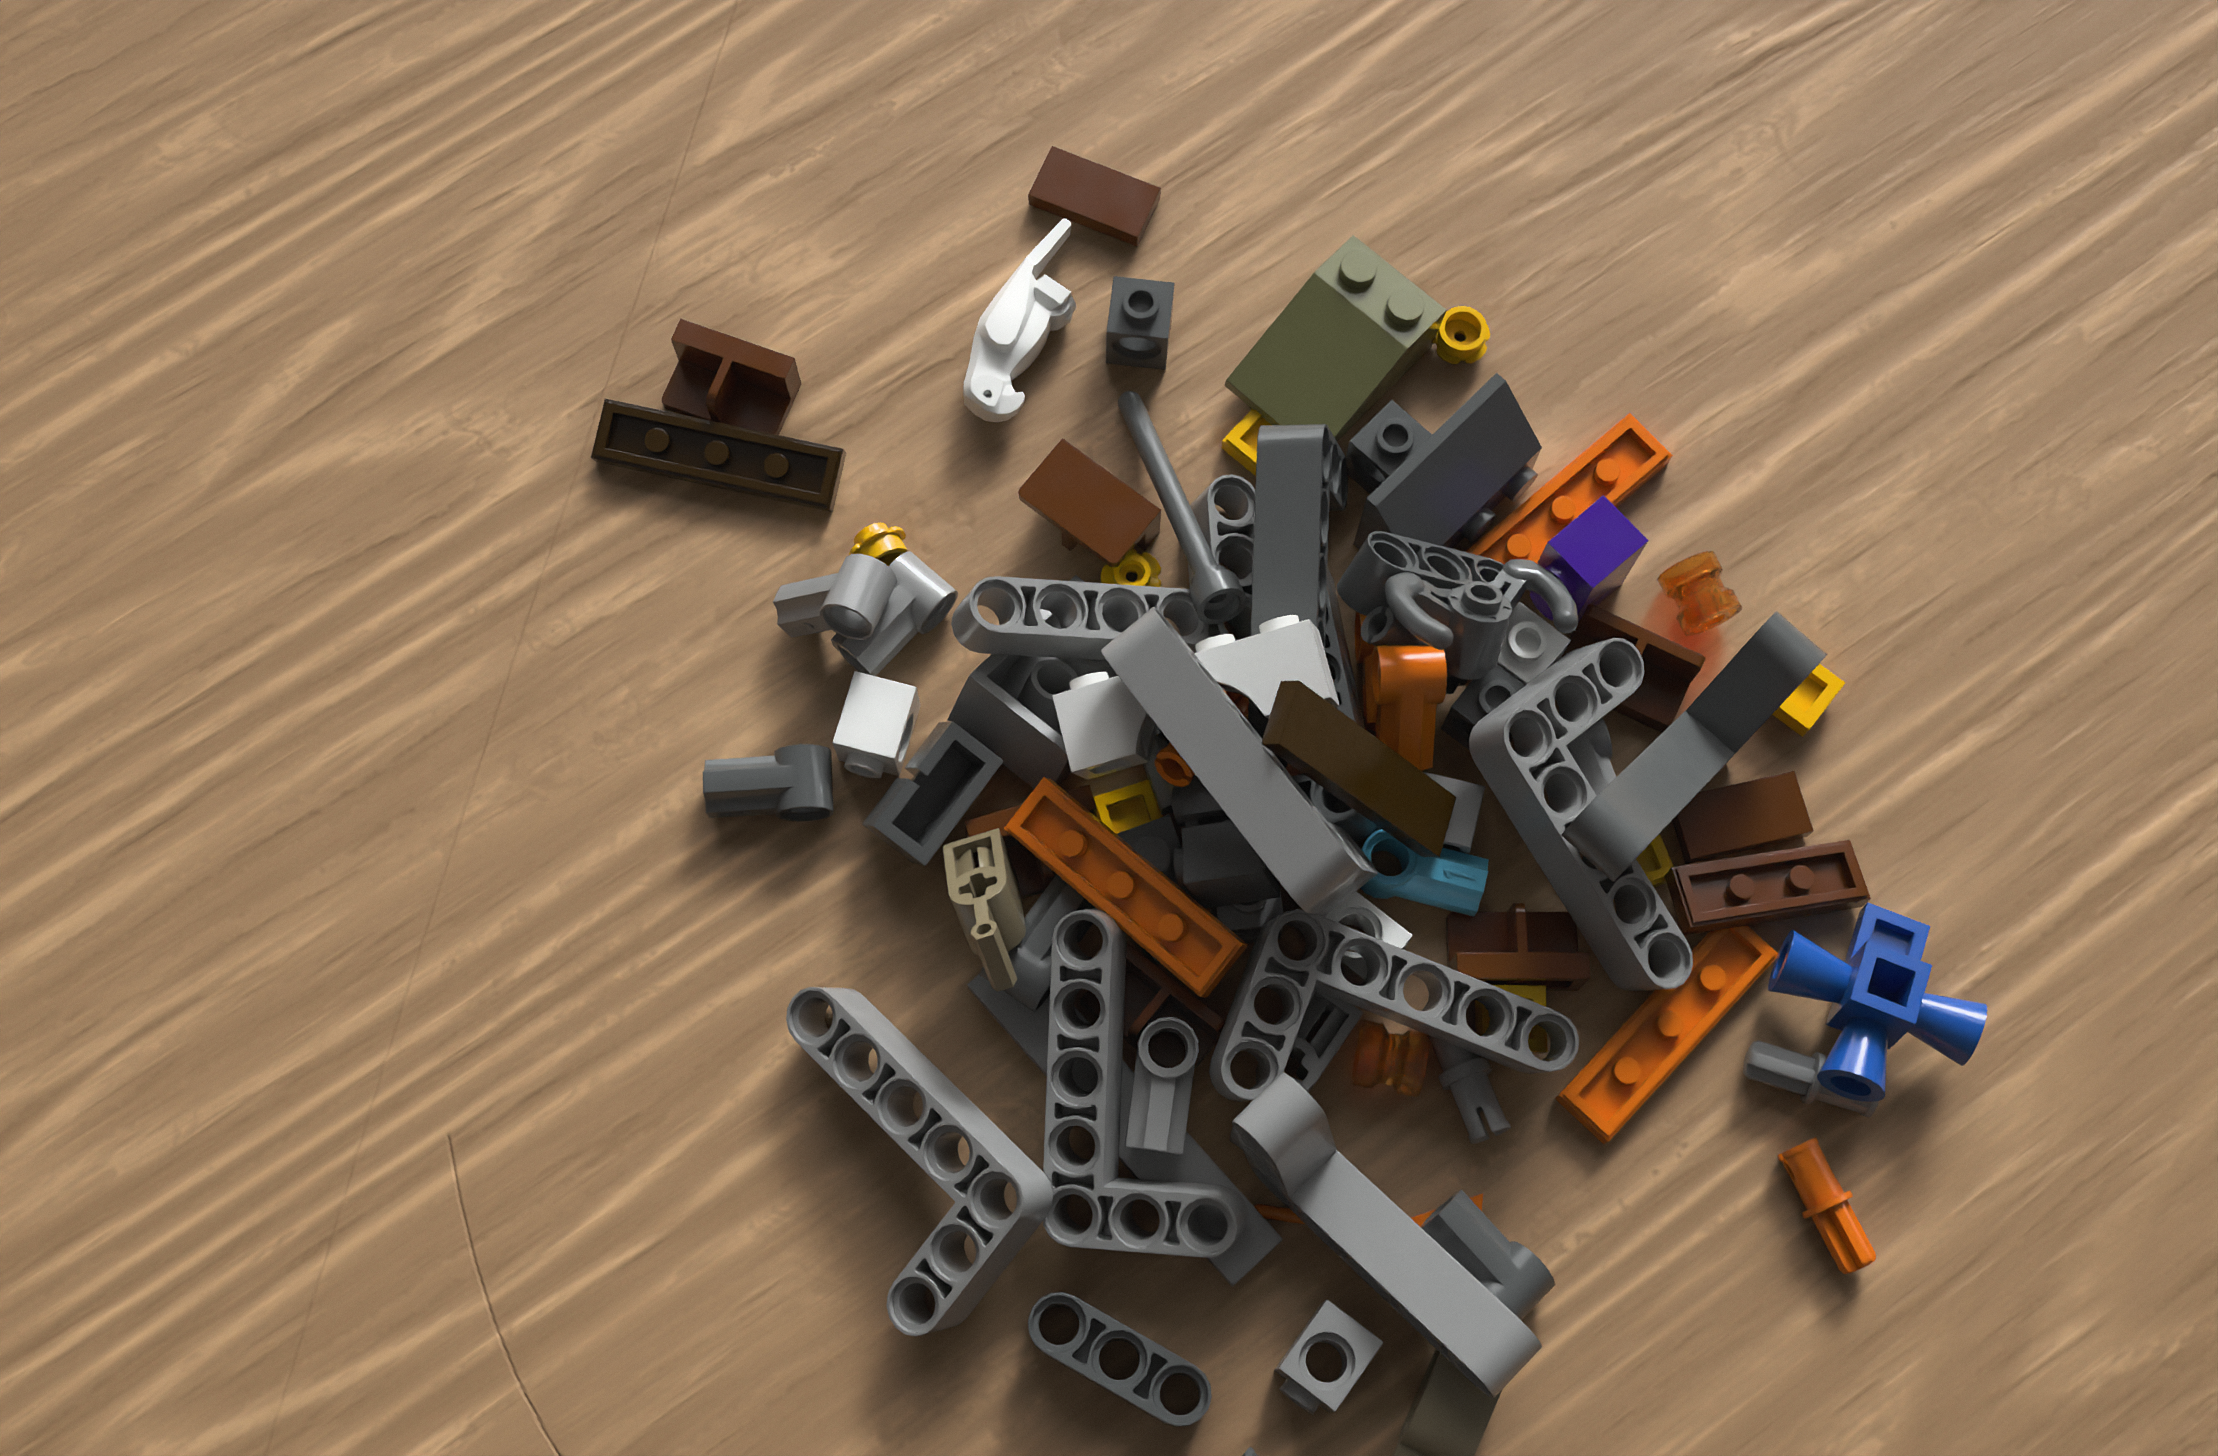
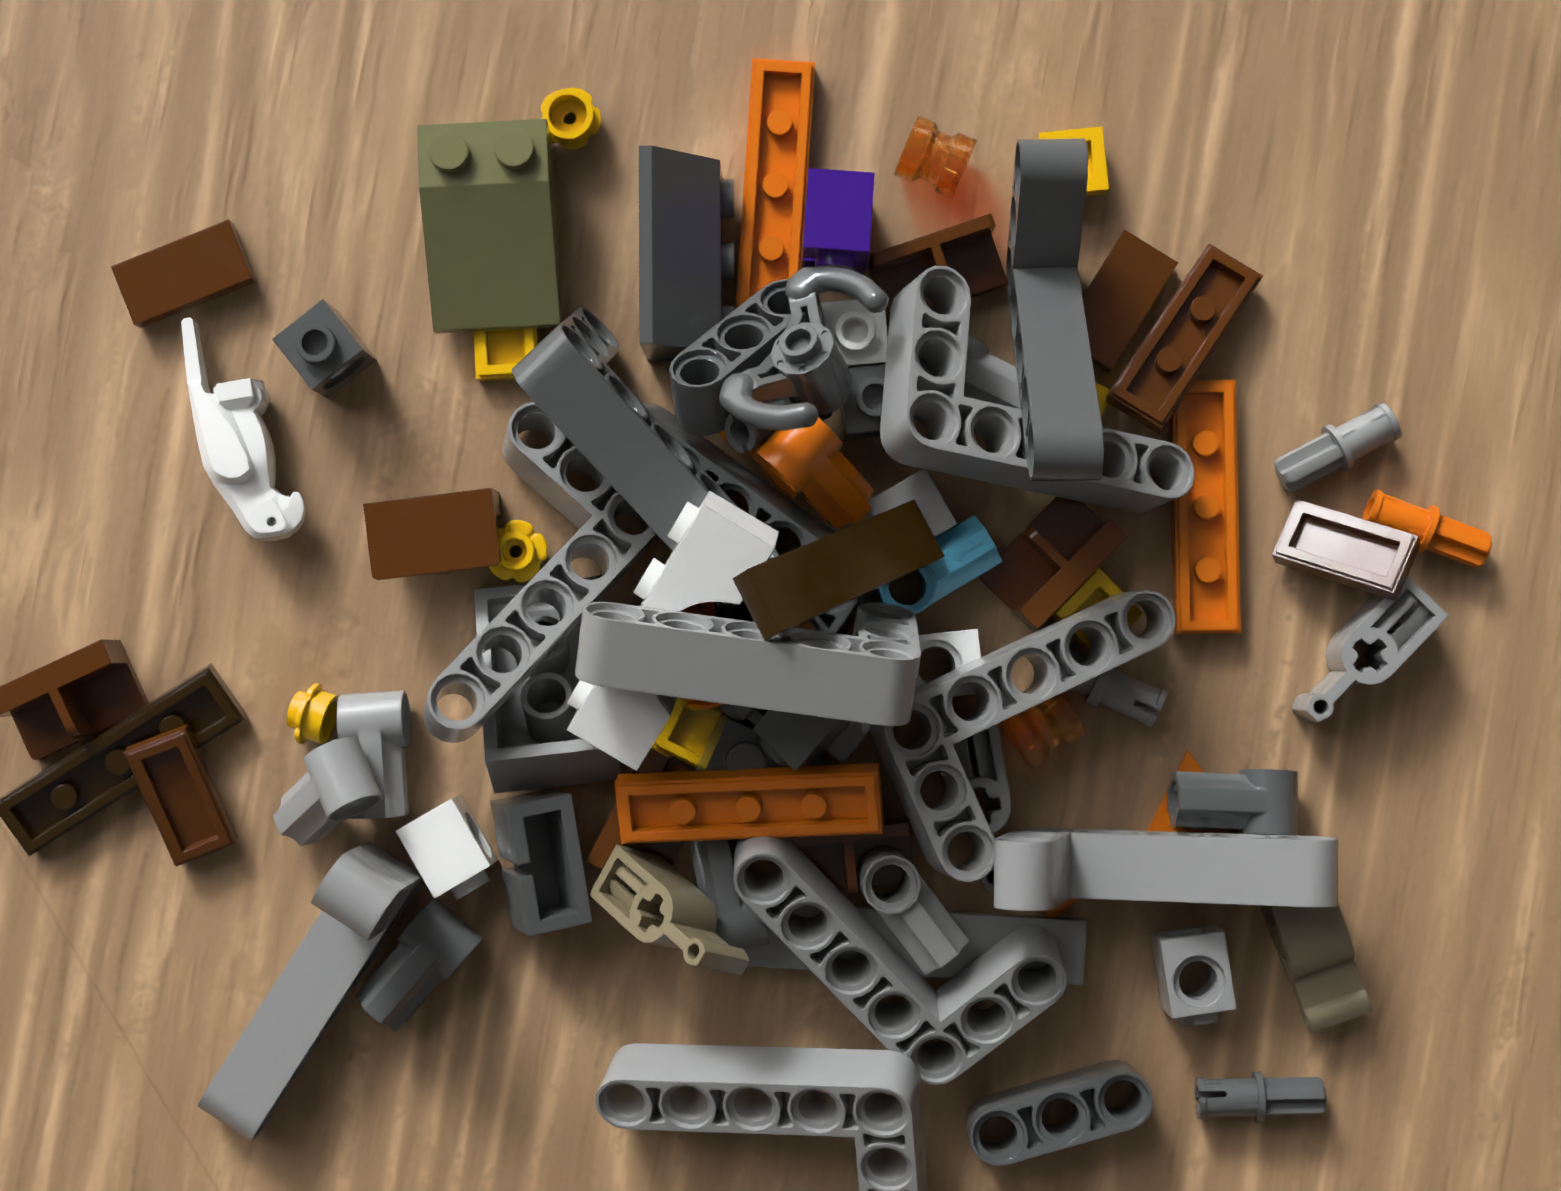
camera: 40 degrees left, 15 degrees up
(686, 726) = (359, 909): none -> light grey beam
(734, 514) = (181, 795): none -> reddish brown tile
(1213, 589) = (597, 521): dark grey piece -> none
(1383, 446) = (607, 270): dark grey brick -> none
(1713, 1234) = (1391, 631): none -> light grey piece
(1751, 1153) = (1346, 549): none -> tile
(1876, 1000) = (1334, 351): blue brick -> none

